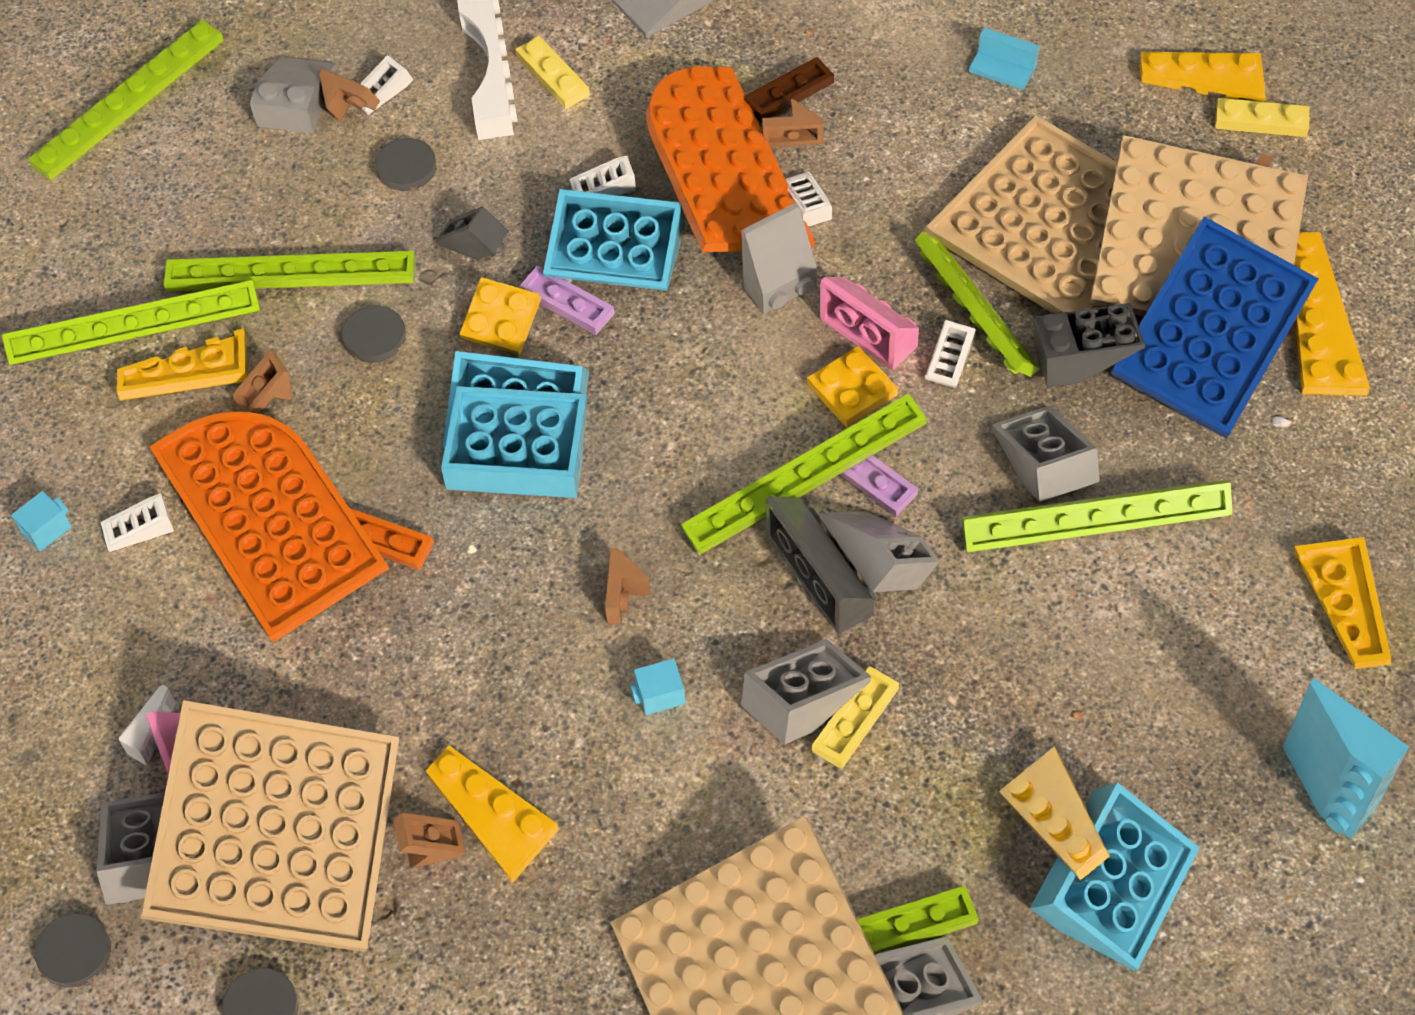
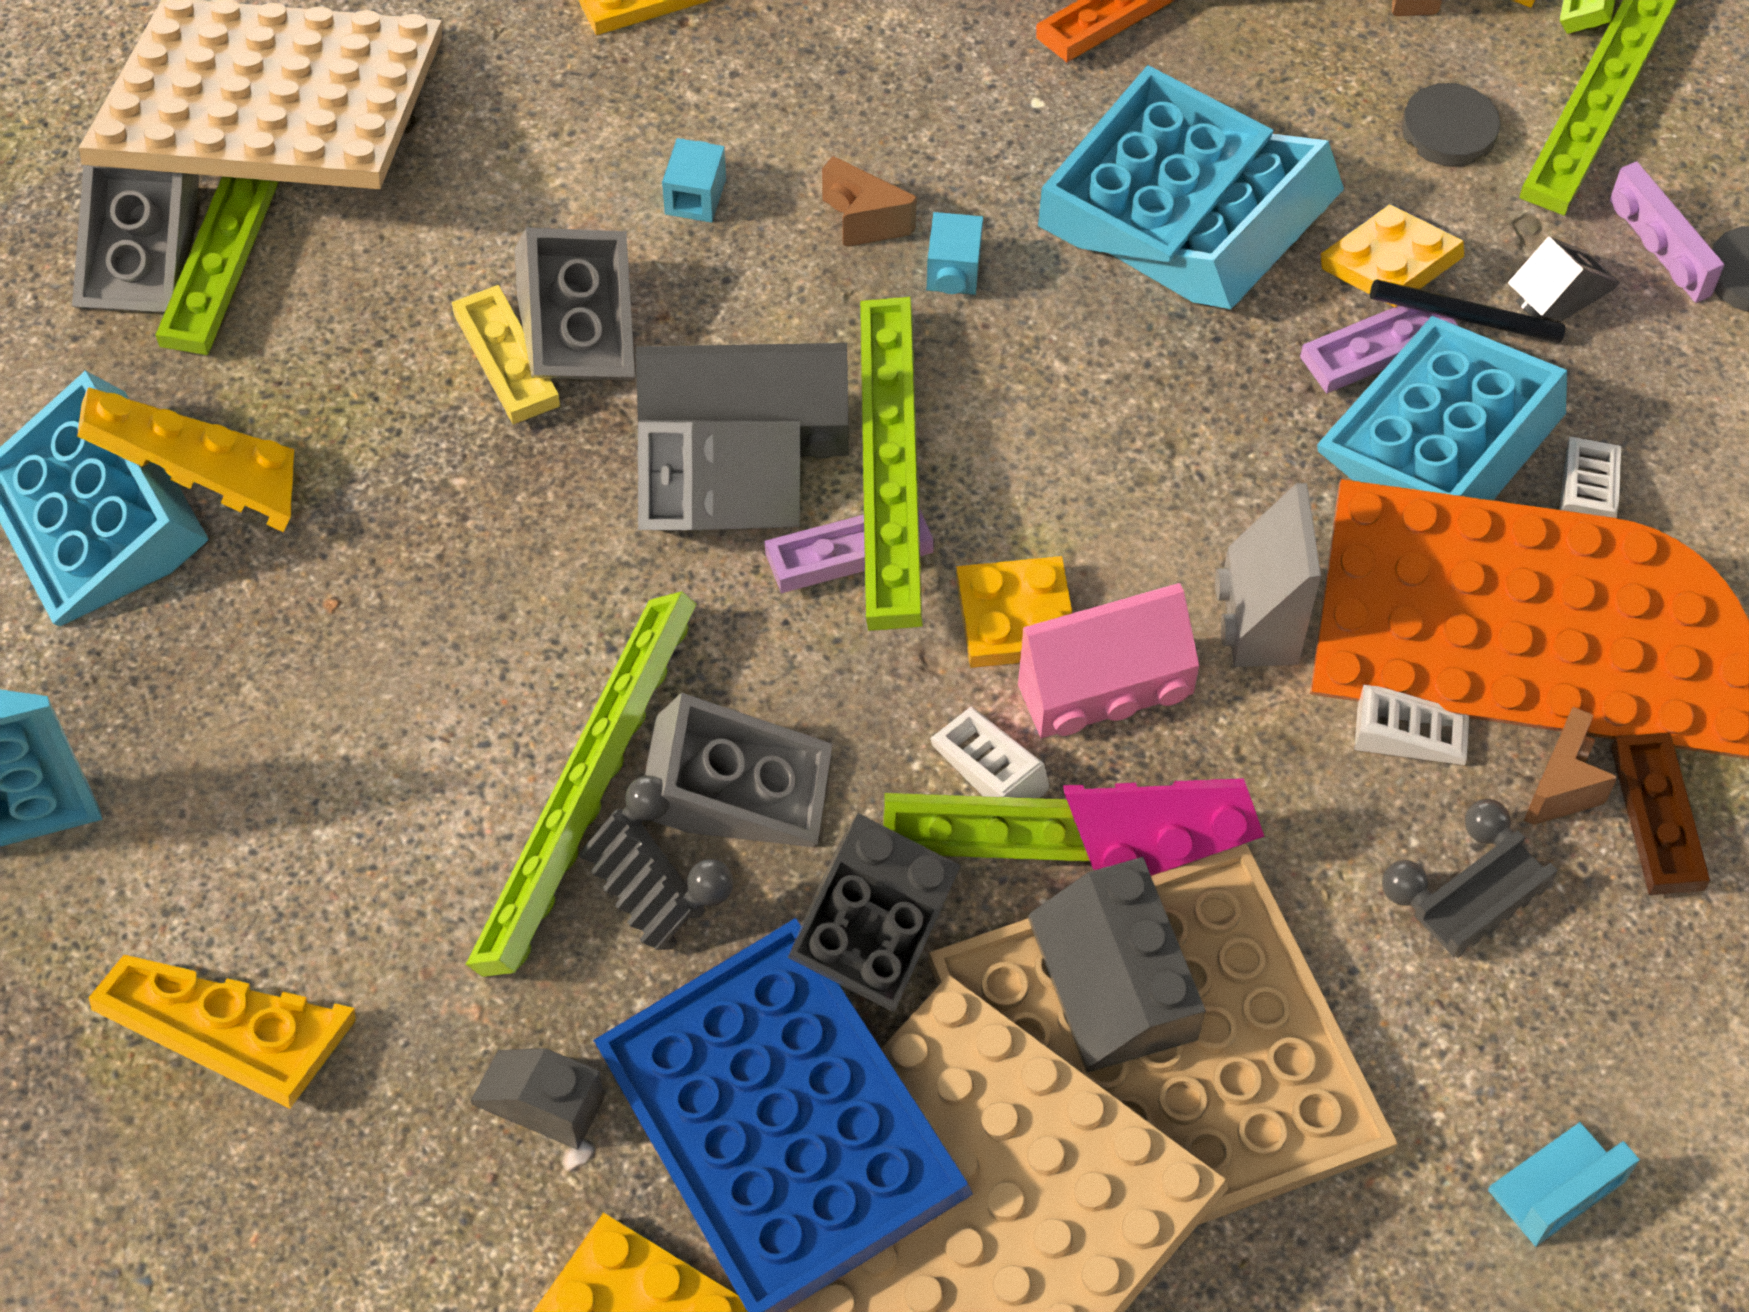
camera: 115 degrees right, 0 degrees up
(407, 205) = (1666, 232): none -> lavender plate
(528, 266) = (1467, 311): none -> black bar
(632, 521) = (954, 253): none -> medium azure brick
(879, 133) = (1481, 893): none -> dark grey gear
(954, 258) = (1163, 822): none -> dark pink wing
(1037, 235) = (1117, 966): none -> dark grey slope
(1132, 455) = (644, 876): none -> dark grey gear
(1272, 440) = (542, 1093): none -> dark grey slope

